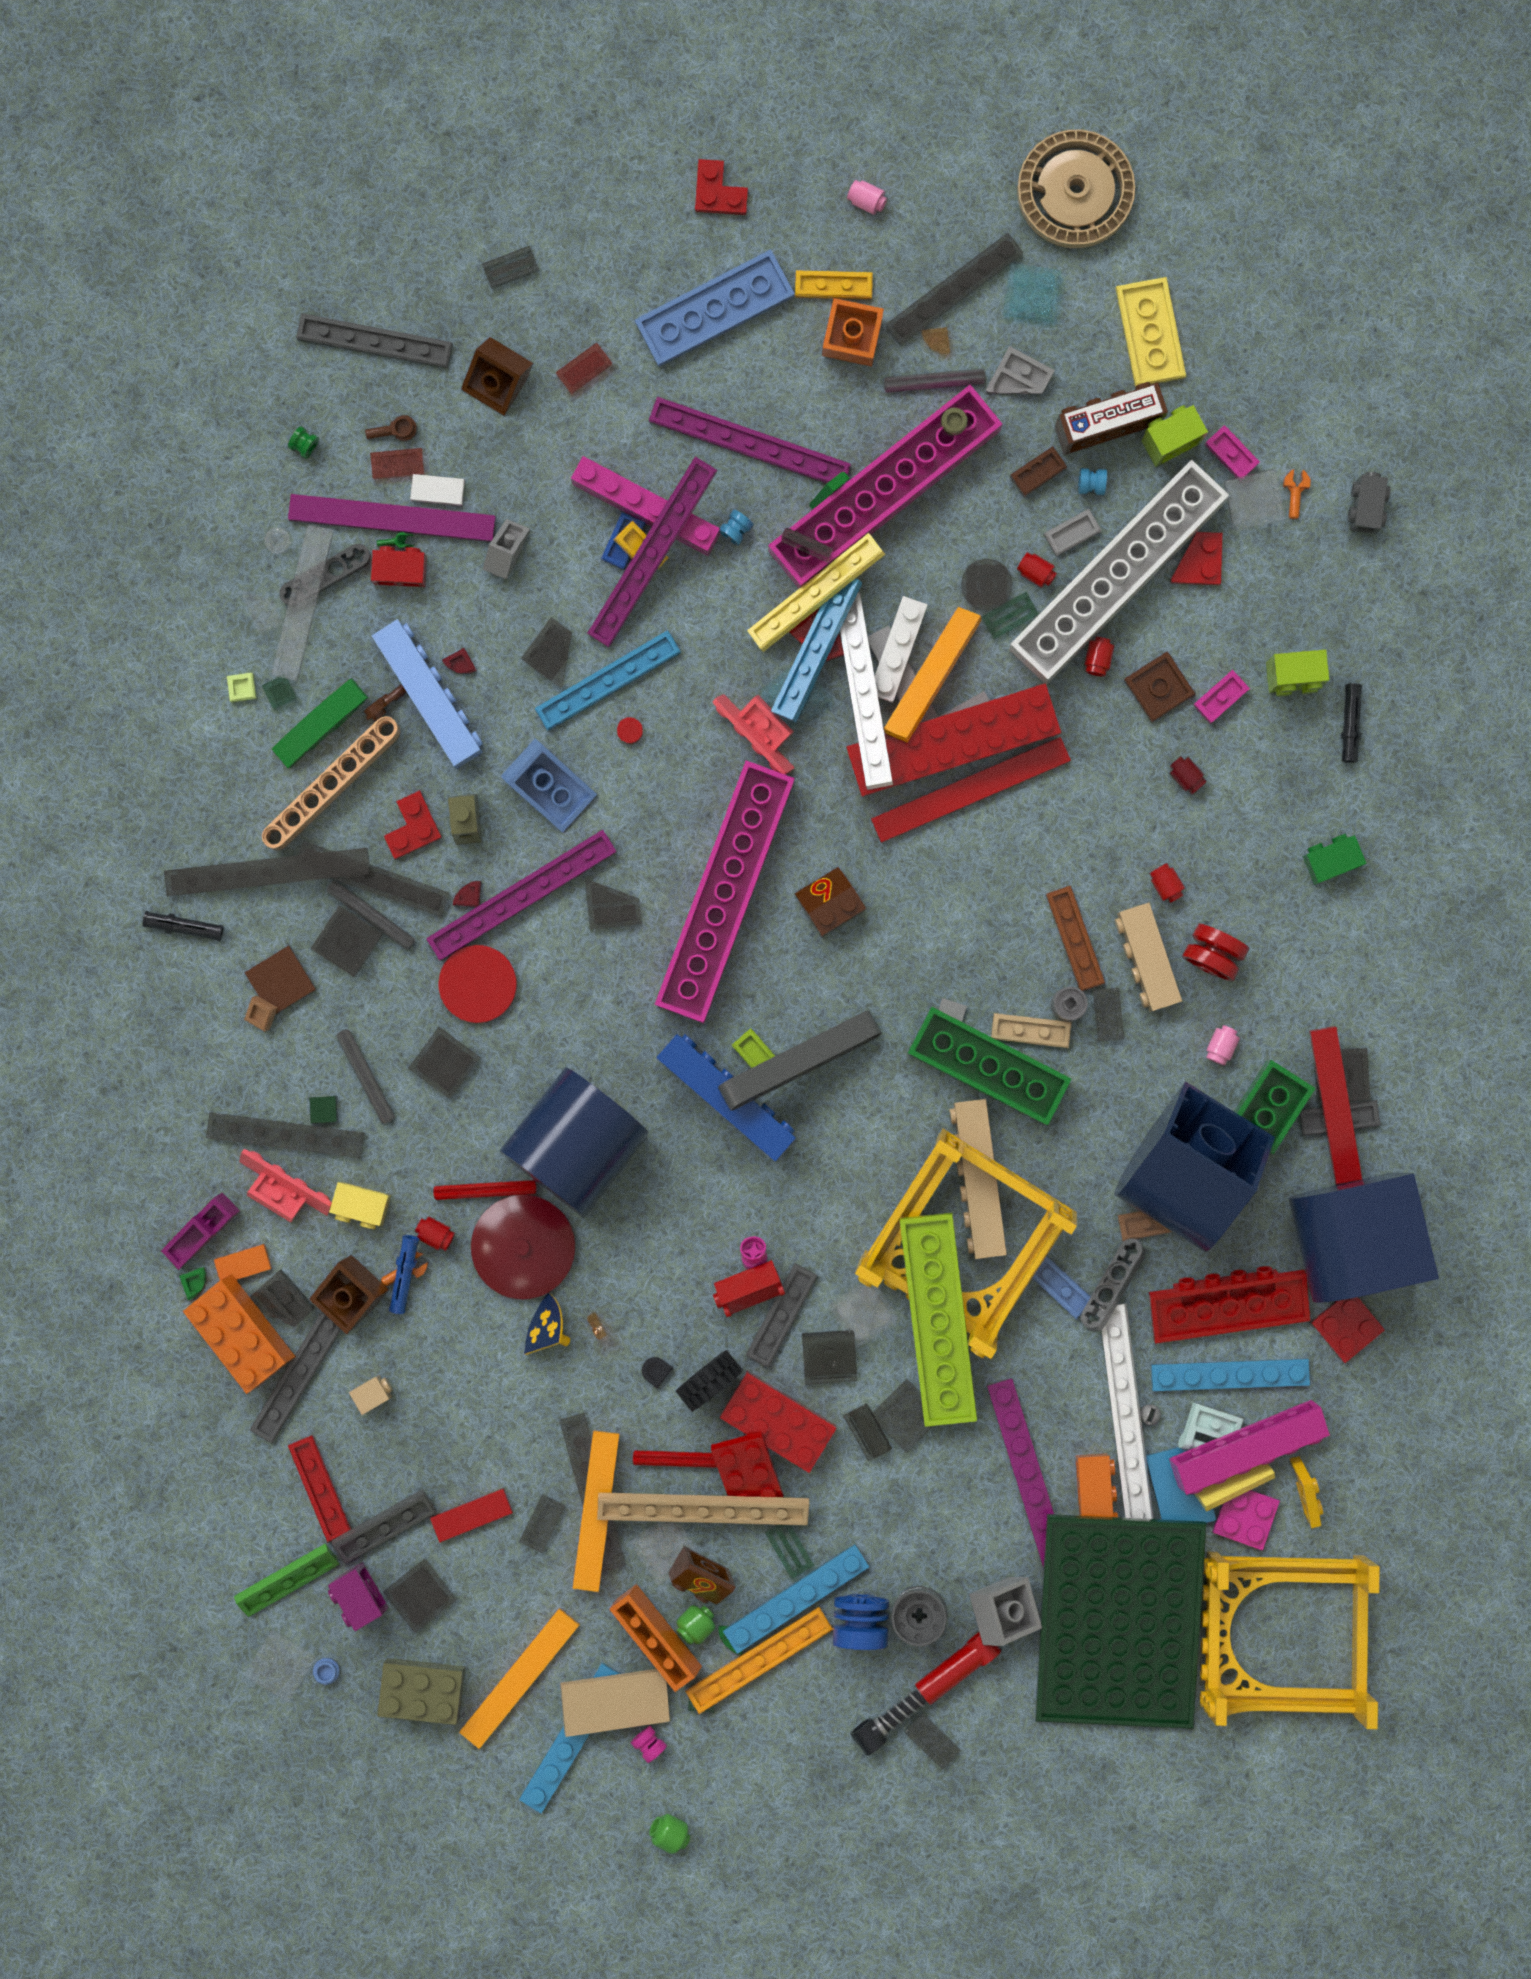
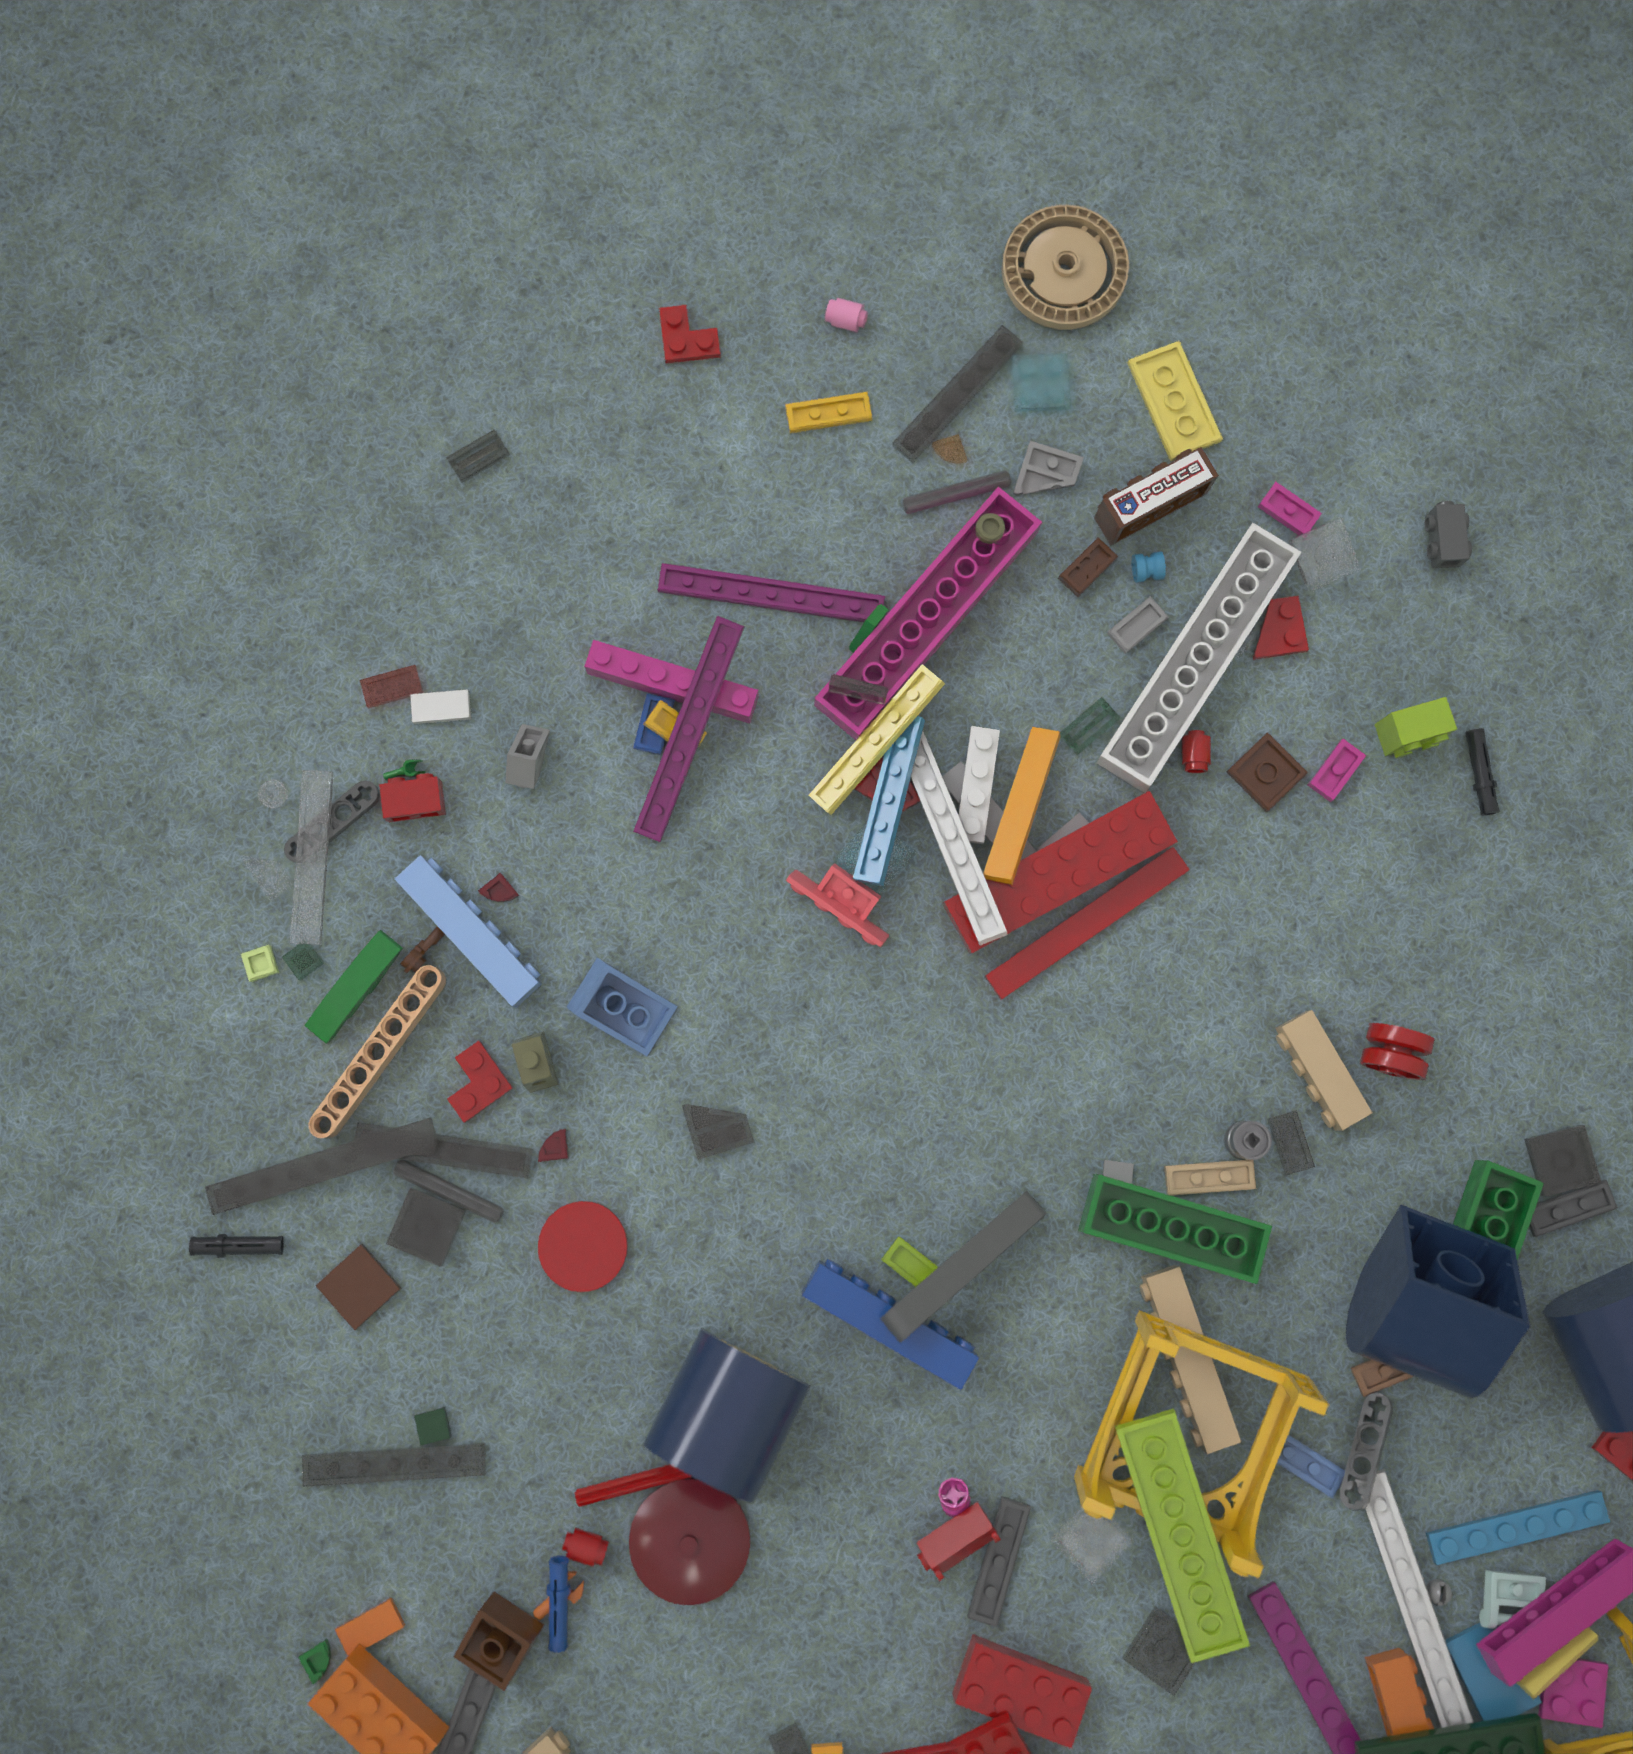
camera: 20 degrees left, 5 degrees down
(200, 1230) = (313, 1598): magenta slope -> none
(260, 1013) = (341, 1329): medium nougat tile -> none
(280, 1191) = (398, 1534): coral bracket -> none
(282, 1300) = (423, 1662): clear smoke wing -> none
(303, 442) = (283, 682): green wheel -> none
(359, 1204) = (493, 1531): light yellow brick -> none
(365, 1076) = (474, 1378): flat silver axle -> none
(374, 340) = (343, 560): dark grey tile -> none
(391, 518) = (395, 746): magenta tile -> none
(403, 428) = (390, 647): reddish brown plate -> none
(444, 1062) = (561, 1344): clear smoke plate -> none
(496, 375) = (483, 572): reddish brown slope -> none
(521, 895) = (613, 1136): magenta plate -> none
(546, 1327) = (733, 1633): dark blue shield -> none
(550, 652) = (596, 859): clear smoke wing -> none
(584, 368) = (577, 548): clear red tile -> none
(598, 1328) = (796, 1624): clear orange tile -> none
(607, 680) = (665, 878): dark azure tile -> none
(629, 730) = (700, 929): red tile -> none
(655, 1370) = (868, 1656): black tile -> none
(709, 1380) = (934, 1662): black tyre -> none
(714, 308) = (705, 459): medium blue plate -> none
(724, 892) = (841, 1091): dark pink brick -> none
(736, 527) = (775, 684): dark azure wheel -> none
(829, 1357) = (1064, 1601): clear smoke tile -> none
(830, 901) = (959, 1076): reddish brown slope -> none
(852, 332) = (860, 456): orange brick -> none
(867, 1432) = (1125, 1680): clear smoke tile -> none
(986, 584) = (1057, 697): clear smoke tile -> none
(1037, 570) = (1109, 671): red brick -> none
(1075, 938) = (1236, 1065): dark orange tile -> none
(1167, 883) = (1324, 984): red brick -> none
(1174, 435) = (1226, 501): lime brick -> none
(1187, 774) = (1319, 861): dark red brick -> none
(1222, 1045) = (1425, 1152): bright pink brick -> none
(1229, 1304) = (1500, 1446): red plate -> none
(1296, 491) = (1365, 538): orange bar -> none
(1333, 859) = (1499, 923): green brick -> none
(1335, 1104) = (1566, 1196): red tile -> none

